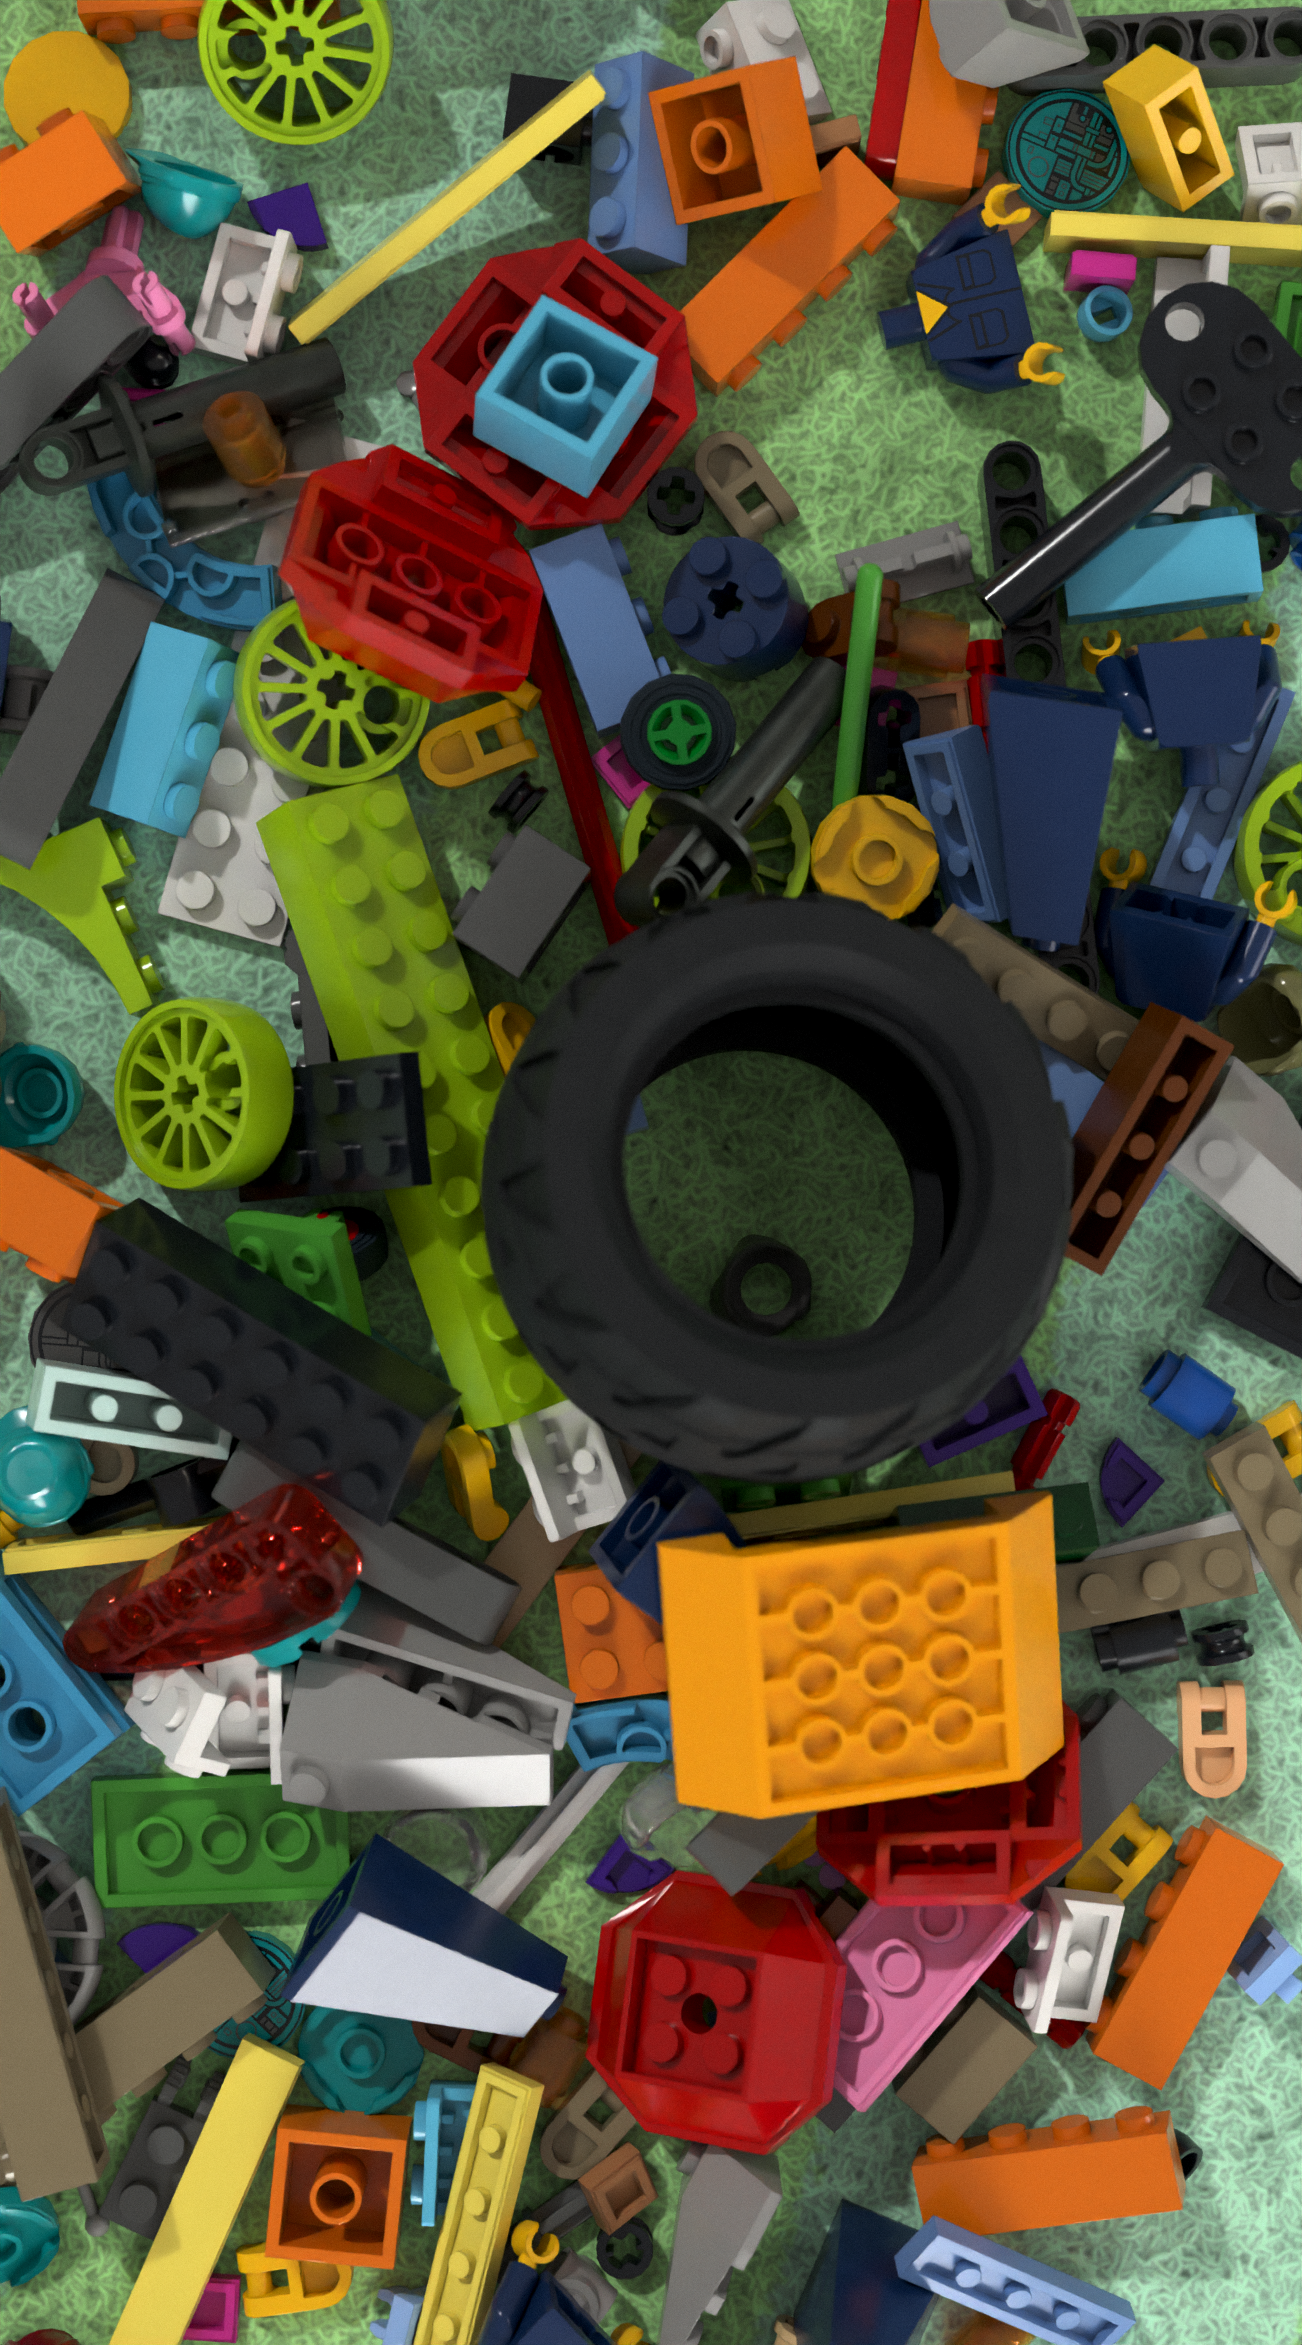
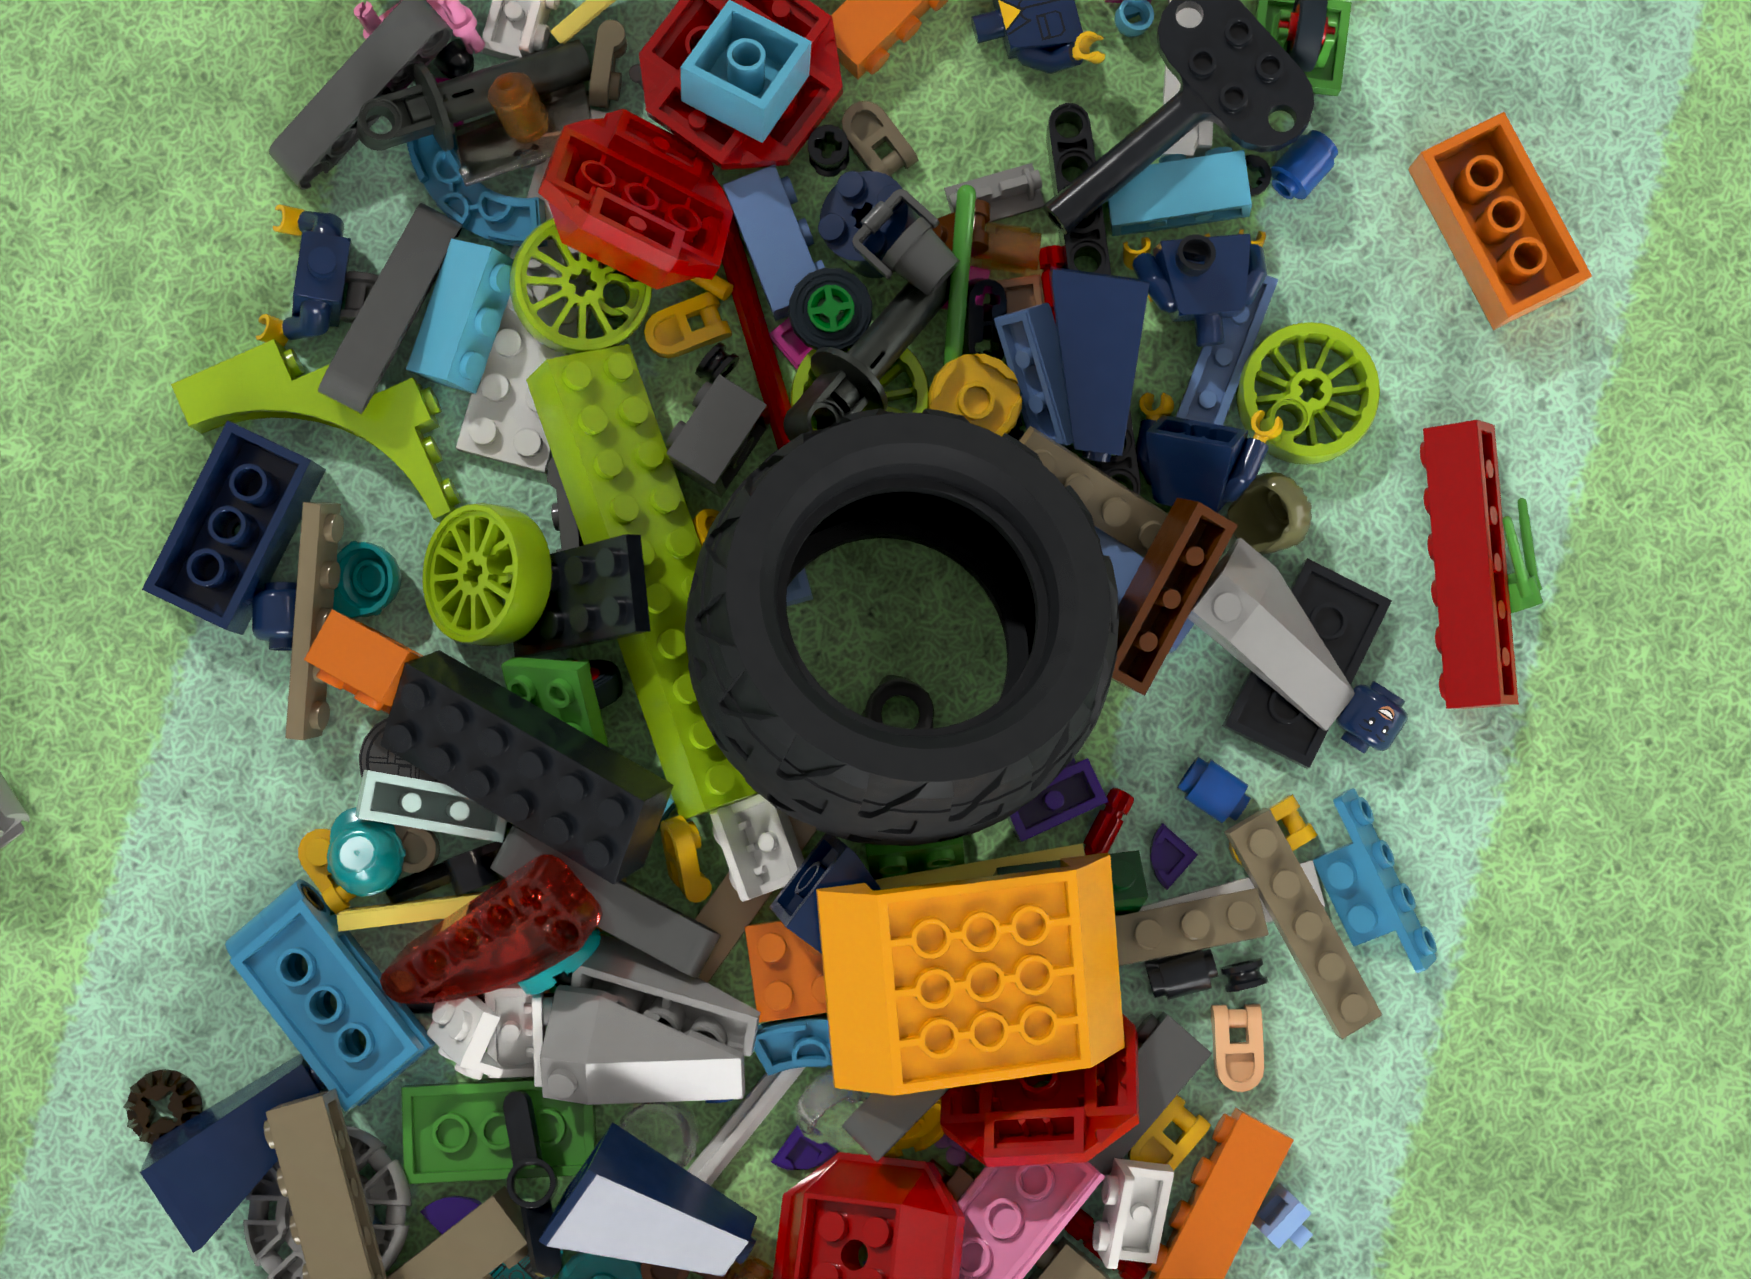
camera: 10 degrees right, 5 degrees down
(261, 1870) = (527, 1152): none -> black piece
(363, 397) = (604, 81): none -> dark tan plate
(803, 662) = (916, 254): none -> dark grey piece
(1185, 657) = (1195, 248): none -> black hinge

